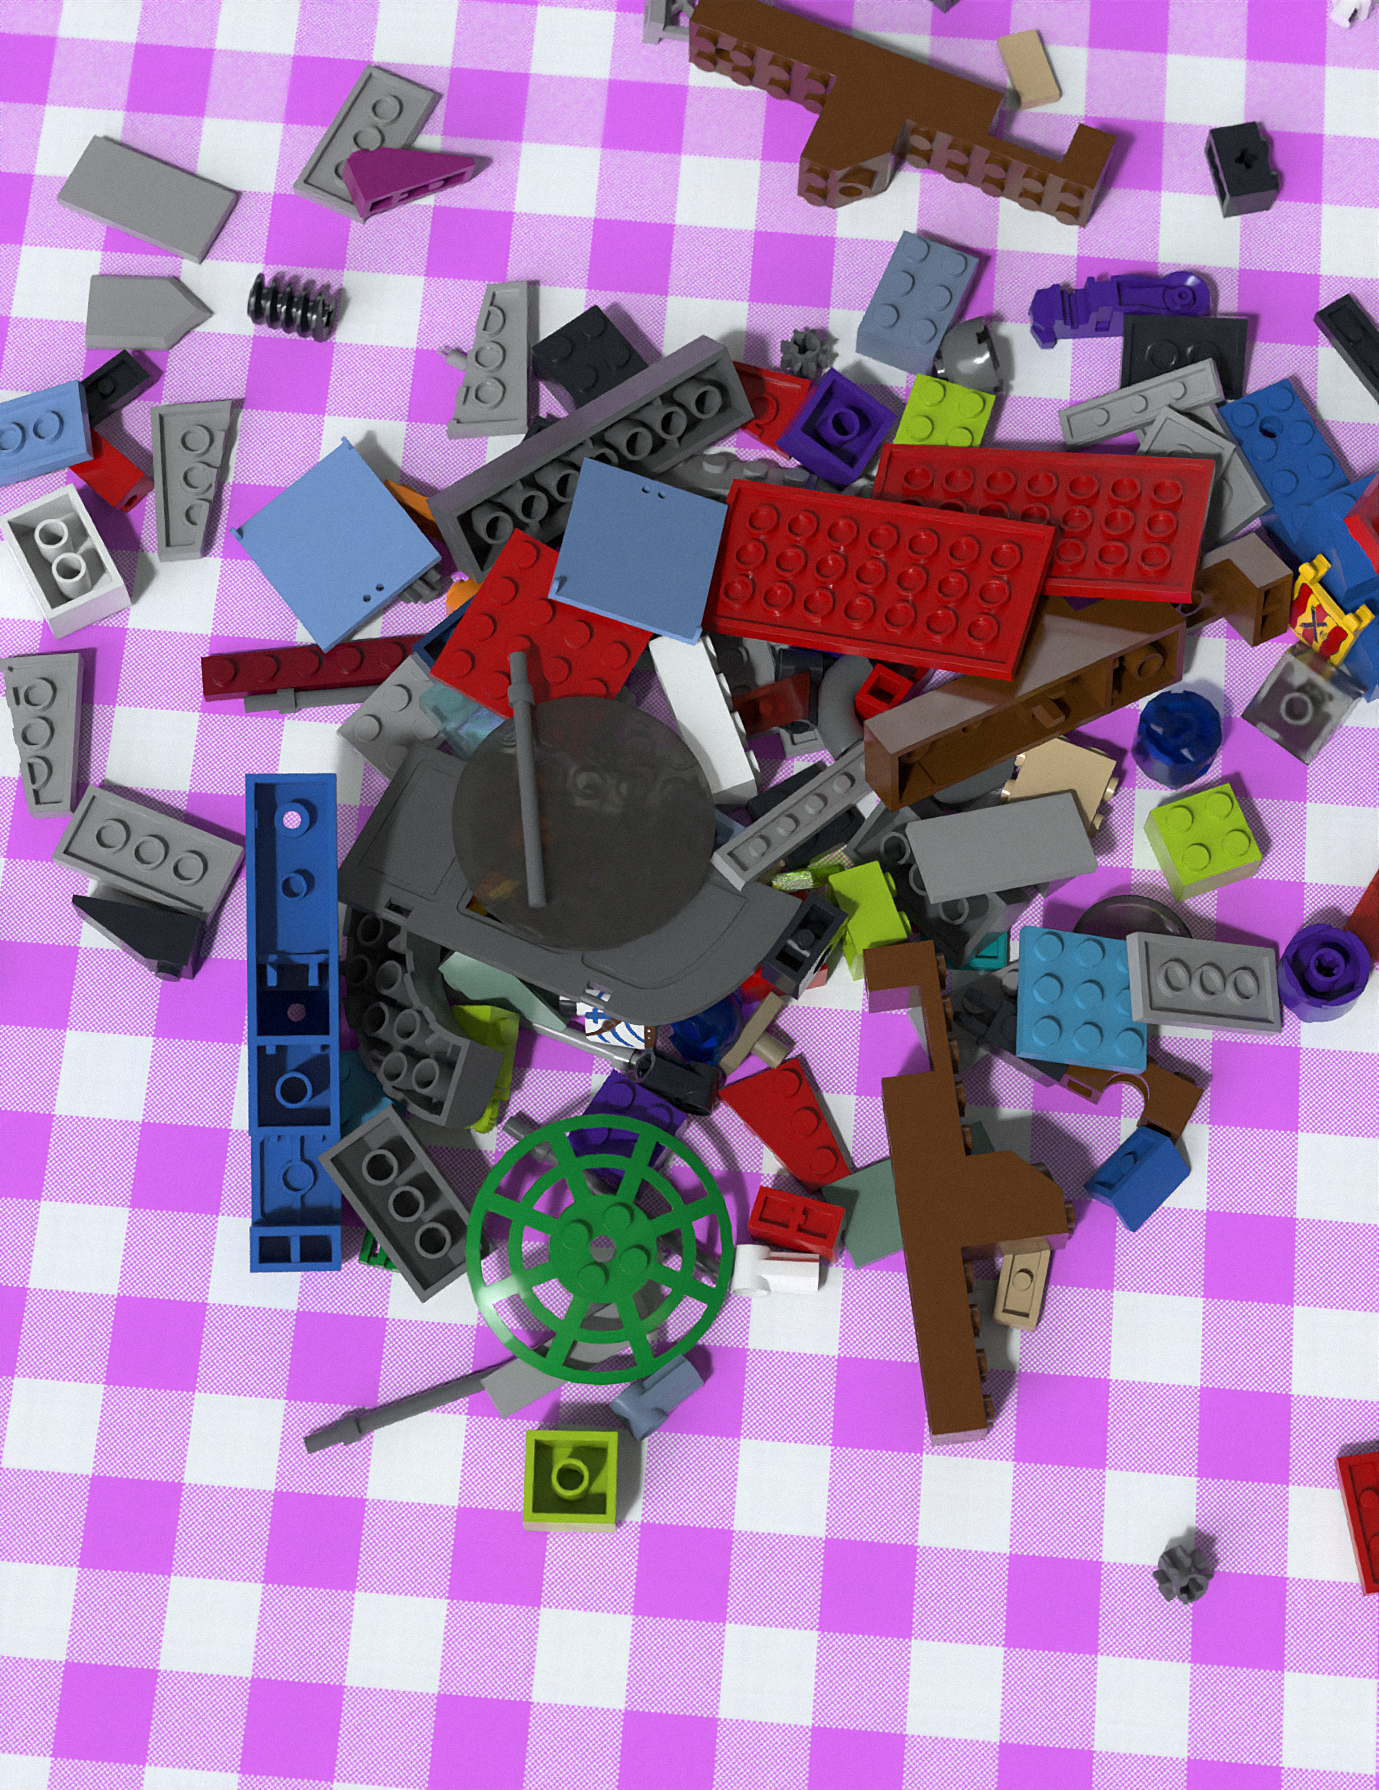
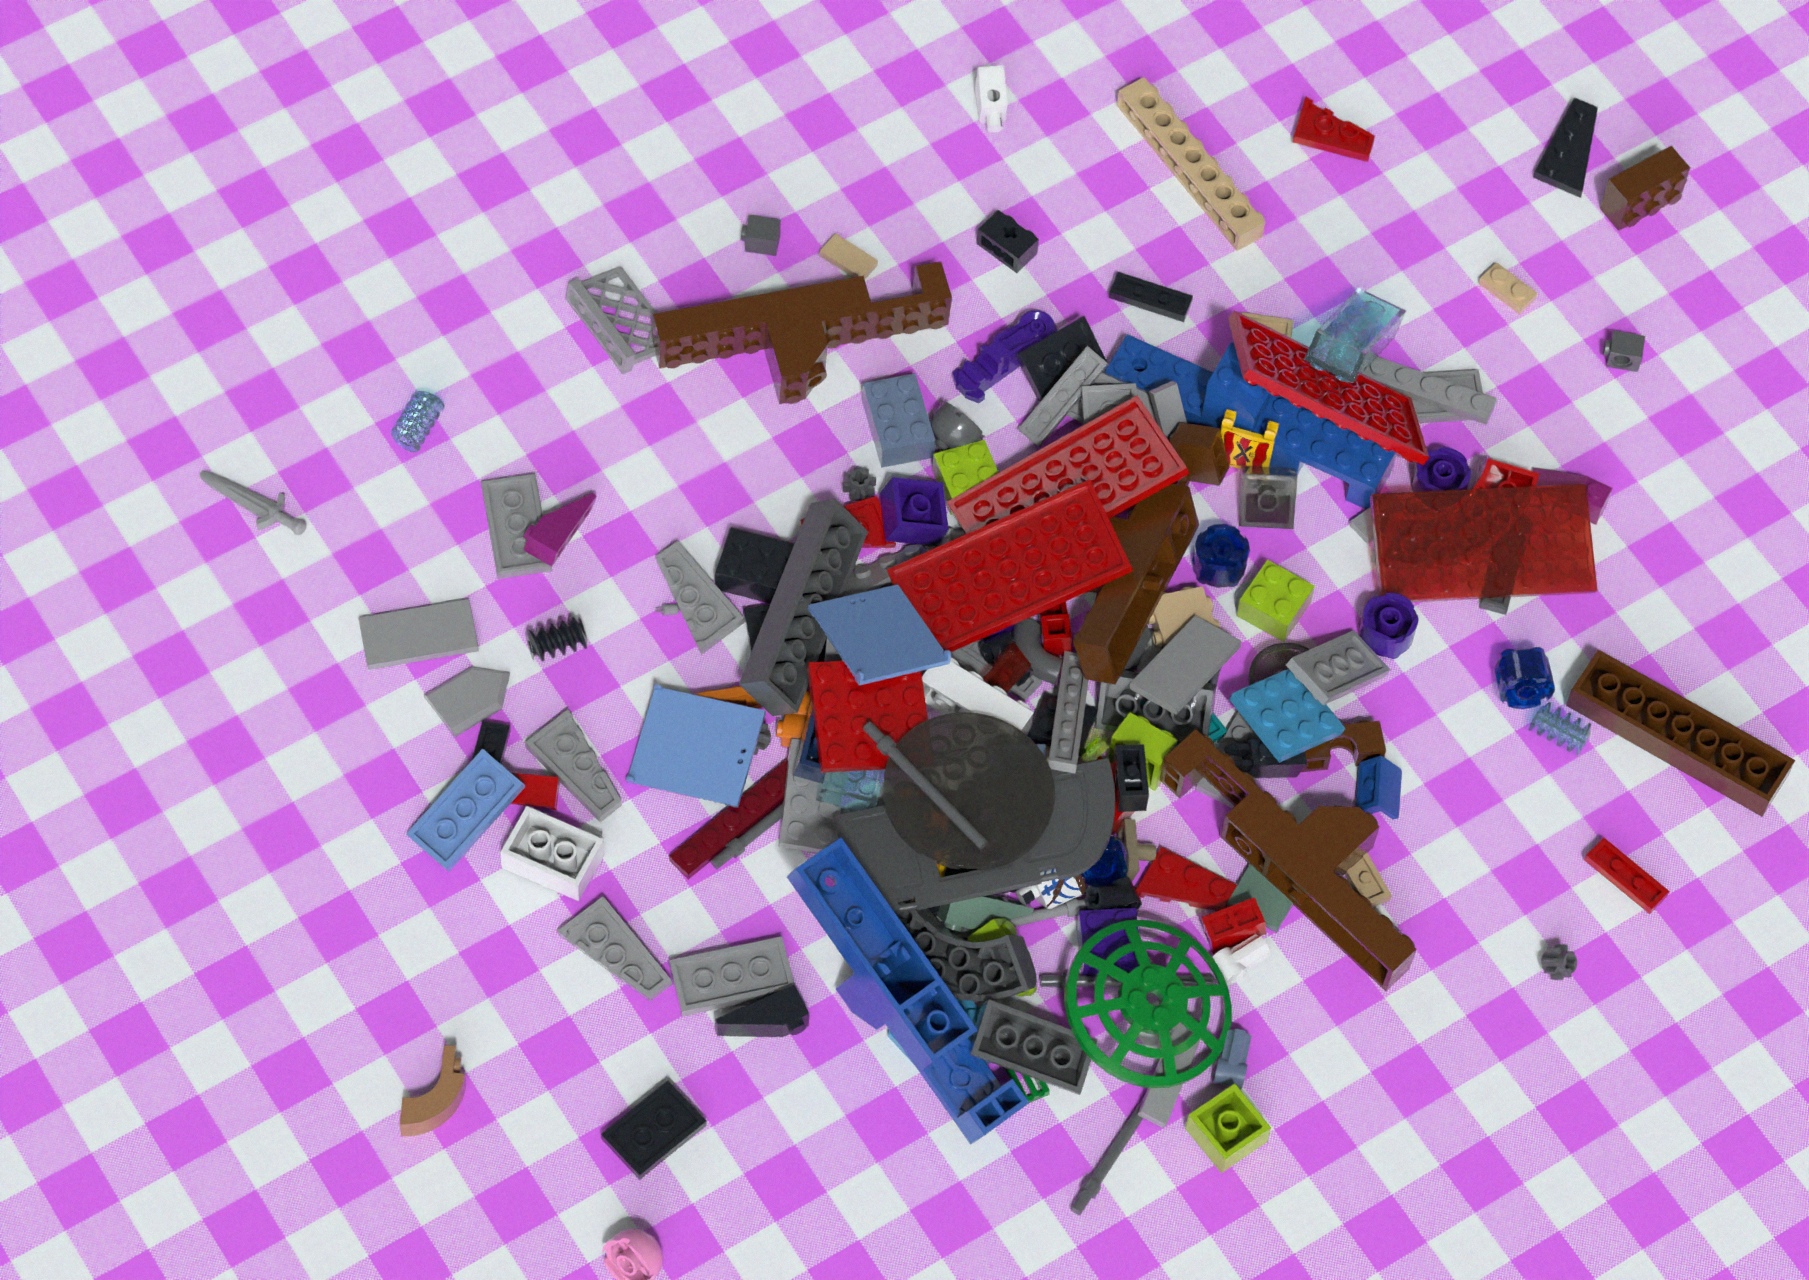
camera: 40 degrees left, 10 degrees down
(1254, 503) = (1168, 407): none -> light grey tile

